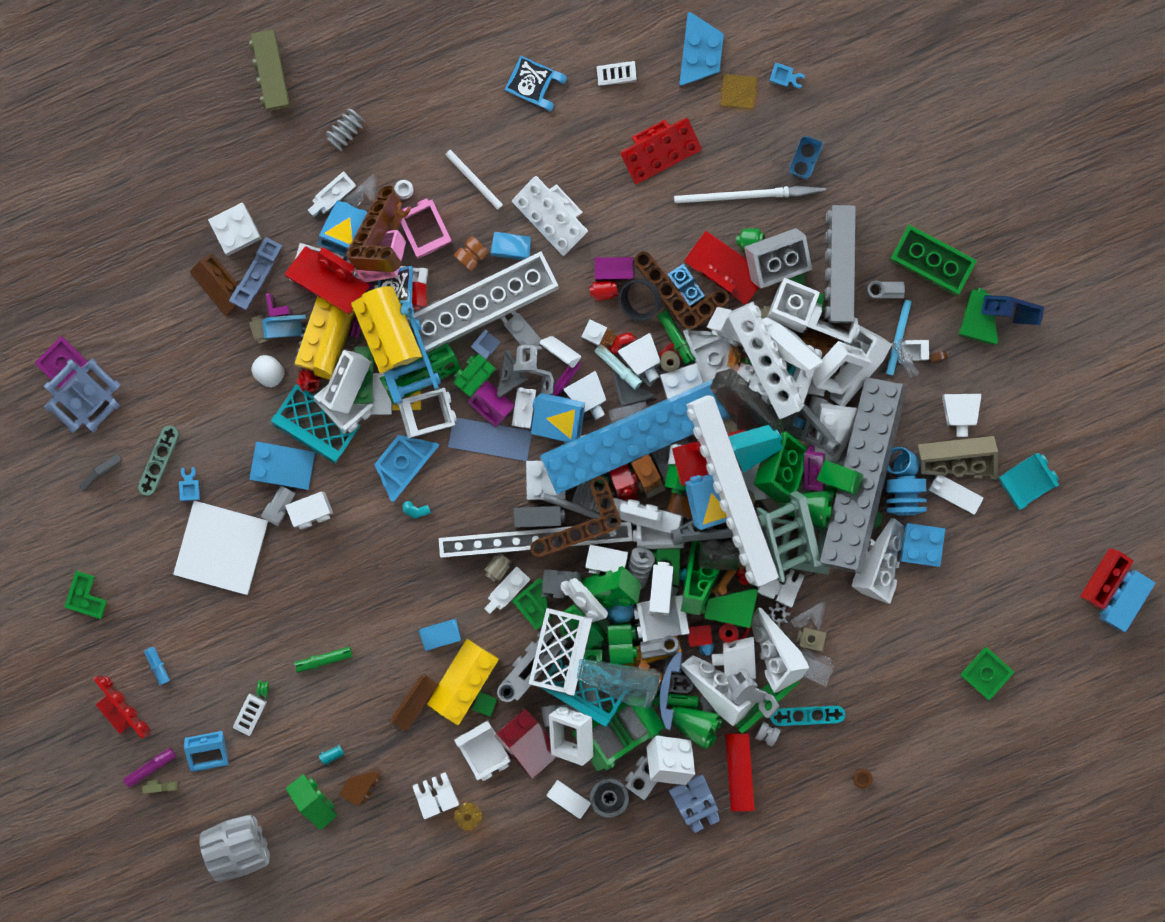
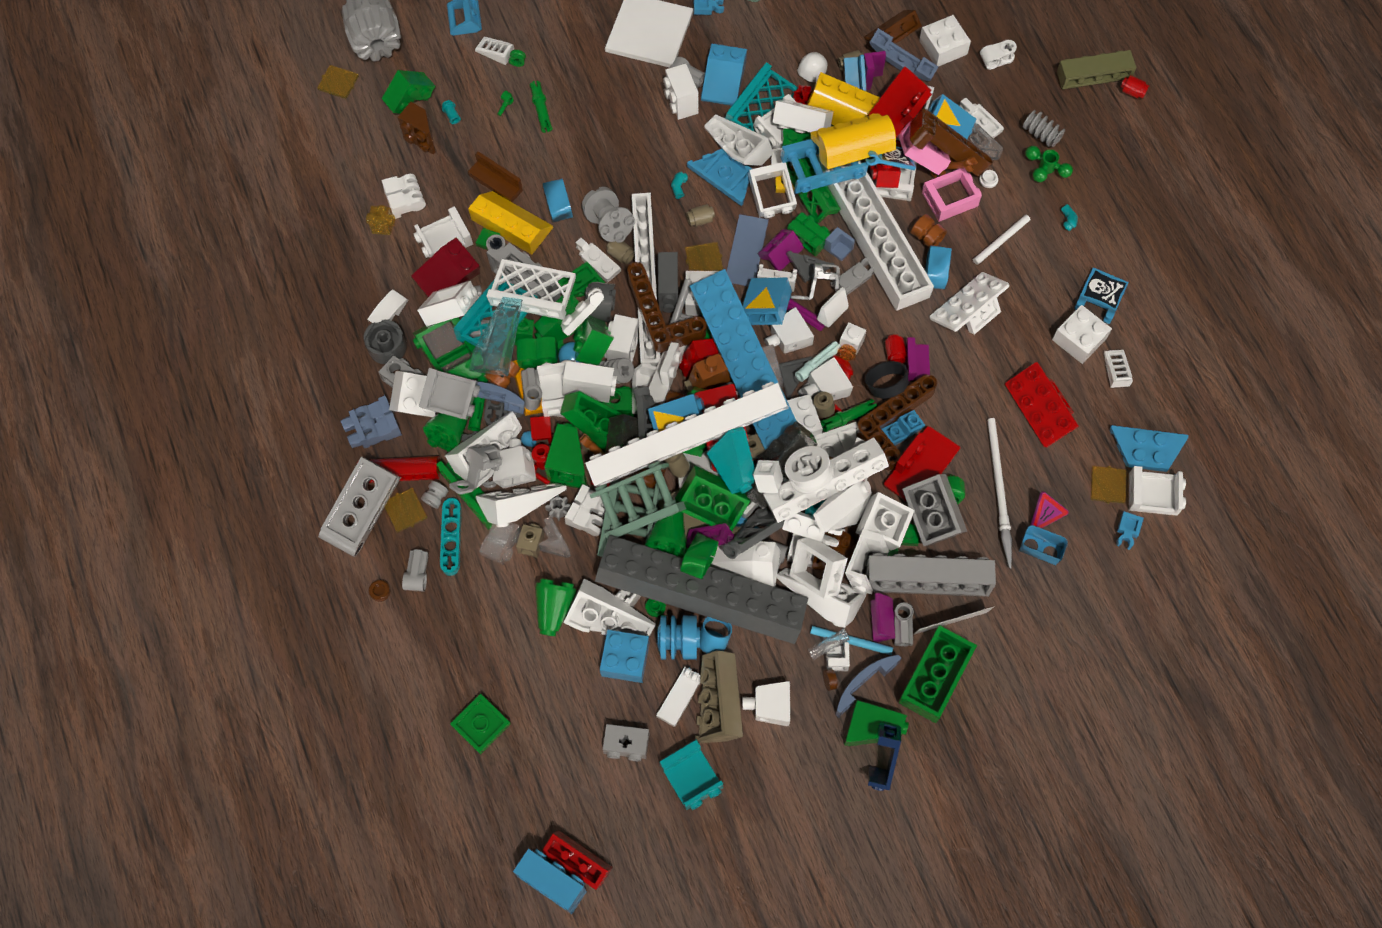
camera: 90 degrees right, 20 degrees down
(252, 175) = (997, 55): none -> white piece
(289, 31) = (1134, 87): none -> red brick
(292, 881) = (338, 81): none -> clear yellow piece
(311, 696) = (508, 100): none -> green hand
(370, 448) = (739, 141): none -> white wedge
(399, 136) = (1040, 174): none -> green piece
(448, 106) = (1072, 217): none -> teal arm
(453, 586) = (603, 209): none -> light grey piece
(455, 486) = (700, 215): none -> dark tan brick
(501, 482) = (704, 257): none -> clear yellow piece
(584, 106) = (1081, 334): none -> white brick
(678, 723) = (449, 394): none -> light grey panel
(747, 47) = (1156, 492): none -> white panel
(752, 368) = (803, 464): none -> white wheel
(766, 414) = (768, 476): none -> white panel
(771, 153) = (1047, 511): none -> piece
(780, 762) = (405, 510): none -> clear yellow piece
(813, 808) = (336, 527): none -> light grey hinge
(850, 745) = (415, 577): none -> light grey piece
(875, 613) = (552, 605): none -> green cone
(880, 308) = (882, 618): none -> magenta panel
(882, 243) = (953, 620): none -> white sticker
(923, 308) = (884, 666): none -> sand blue slope
(995, 531) = (617, 735): none -> light grey brick

